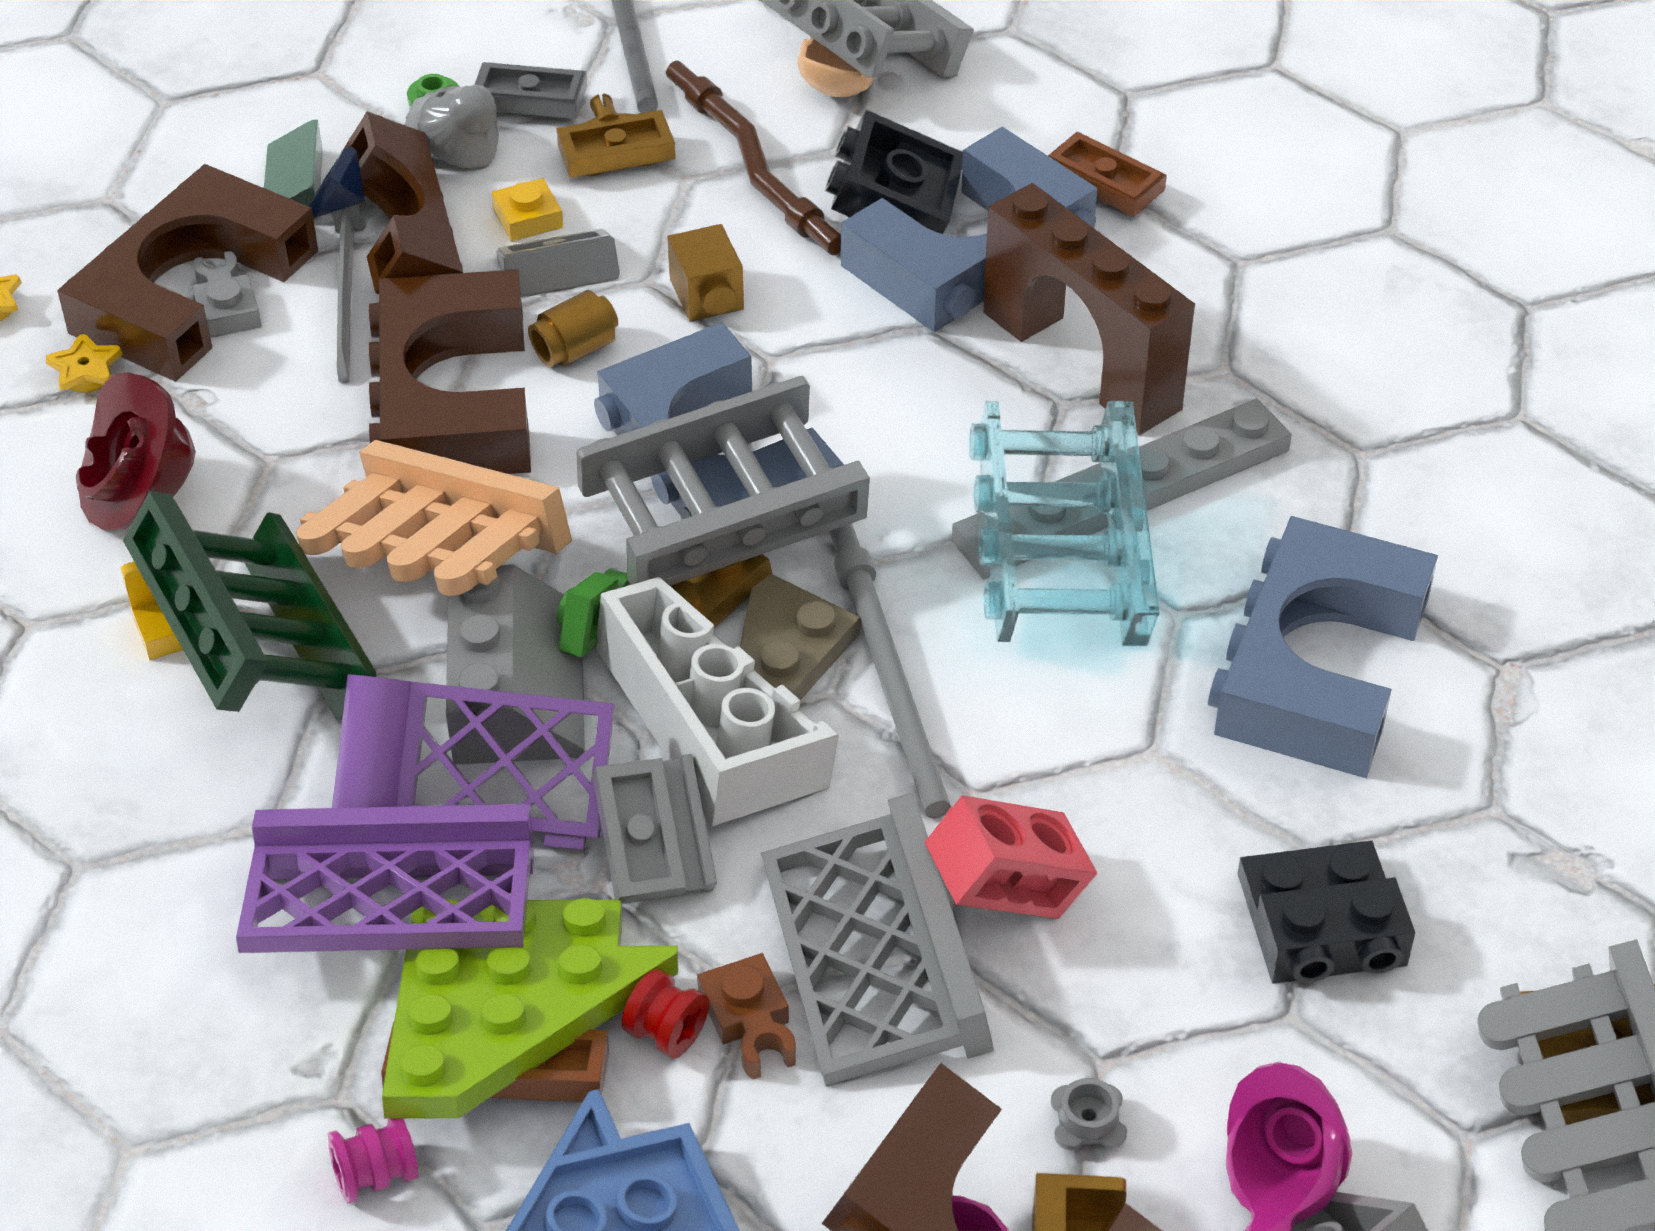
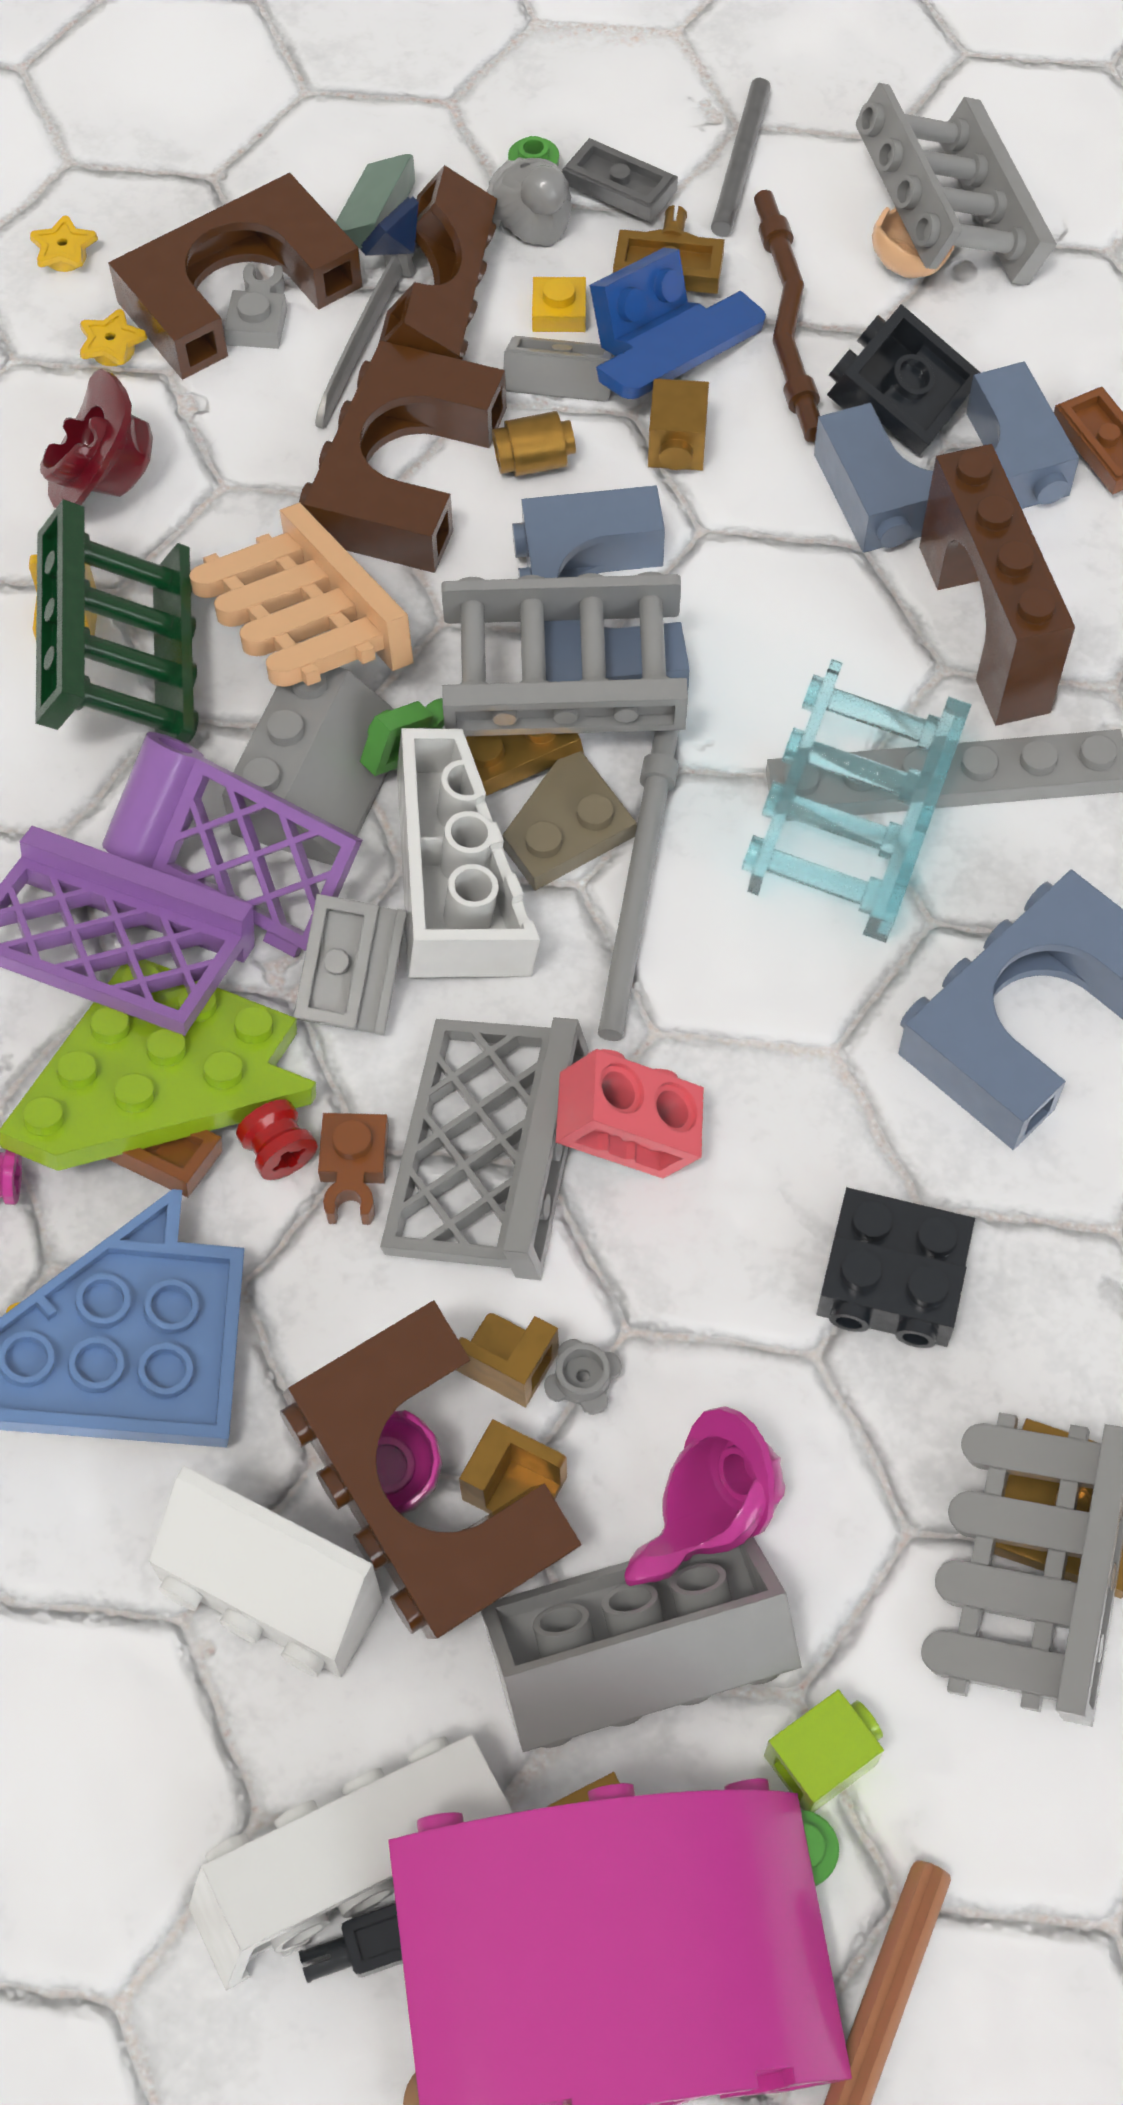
camera: 25 degrees right, 15 degrees up
(643, 205) = (655, 329): none -> blue plate
(1022, 1127) = (510, 1357): none -> pearl gold panel

